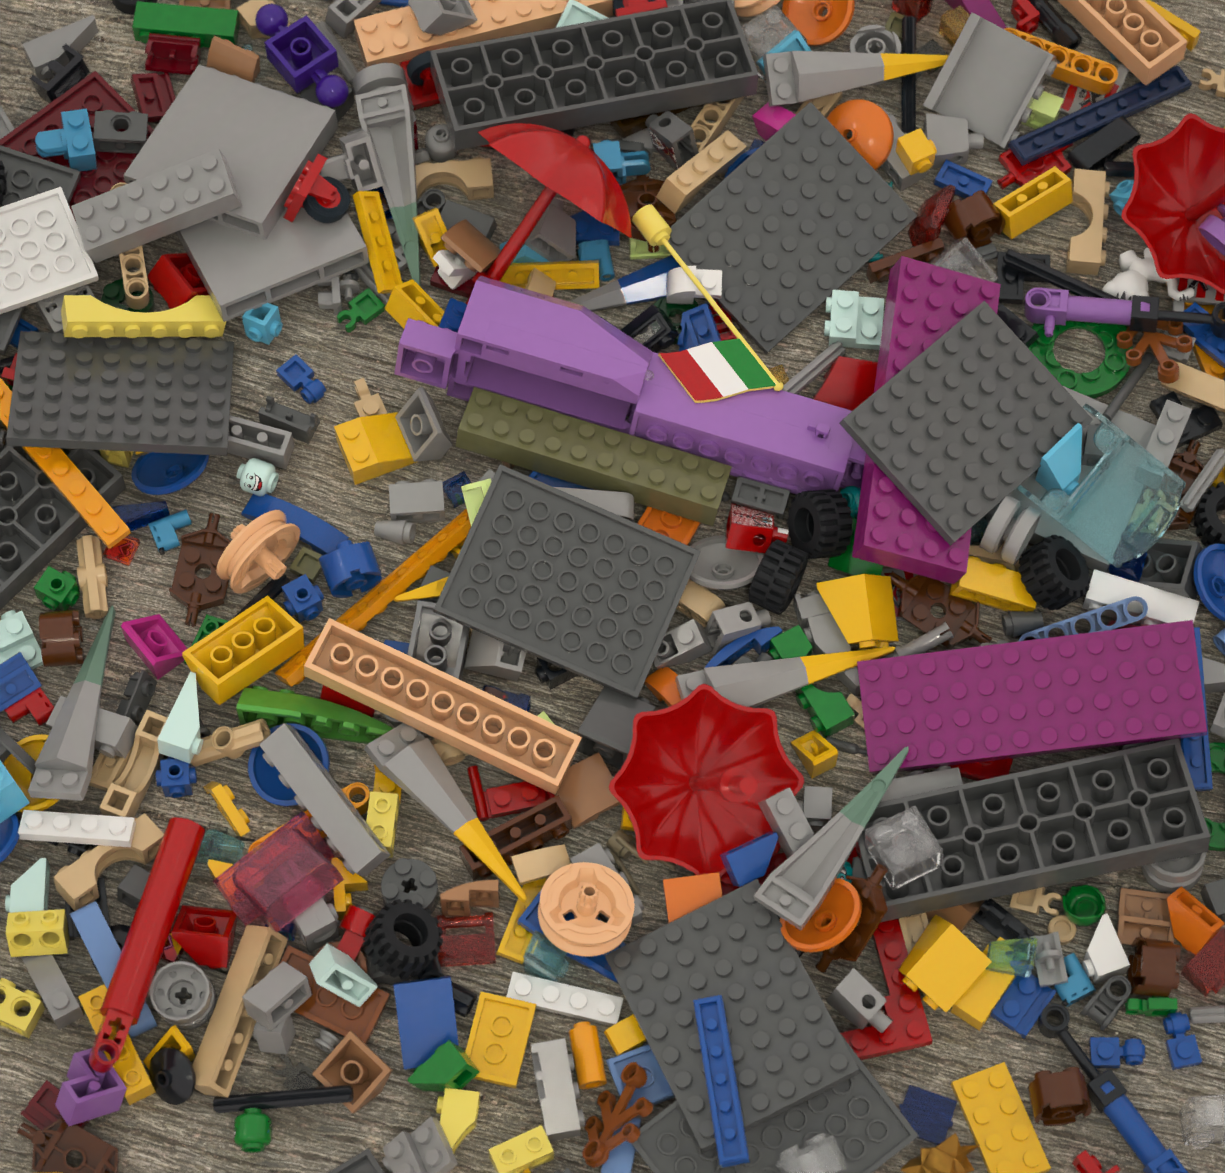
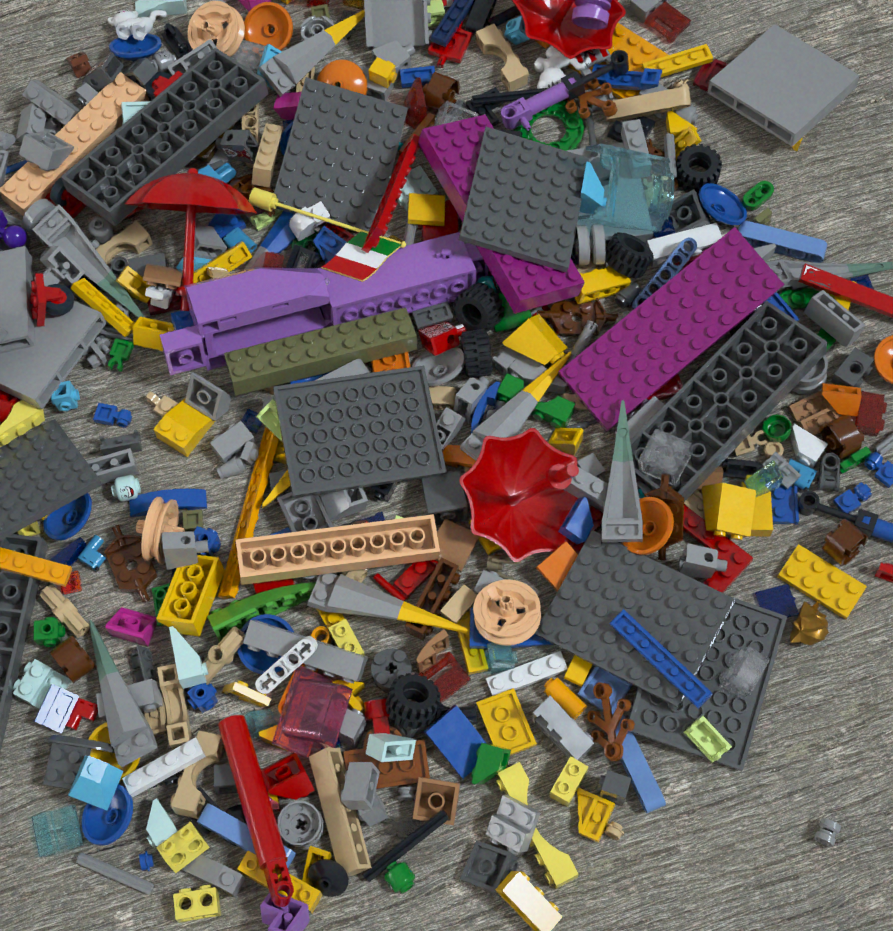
camera: 30 degrees left, 0 degrees up
(265, 589) = (181, 549): none -> light grey torso
(289, 801) = (287, 666): none -> white beam
(350, 568) = (222, 505): blue brick -> none
(427, 526) = (249, 453): none -> light grey plate
(615, 309) = (273, 260): none -> clear red piece
(809, 315) = (391, 194): none -> red plate
(846, 359) = (426, 209): none -> yellow tile
(908, 108) = (347, 39): black axle -> none
(1035, 201) = (467, 61): yellow brick -> none

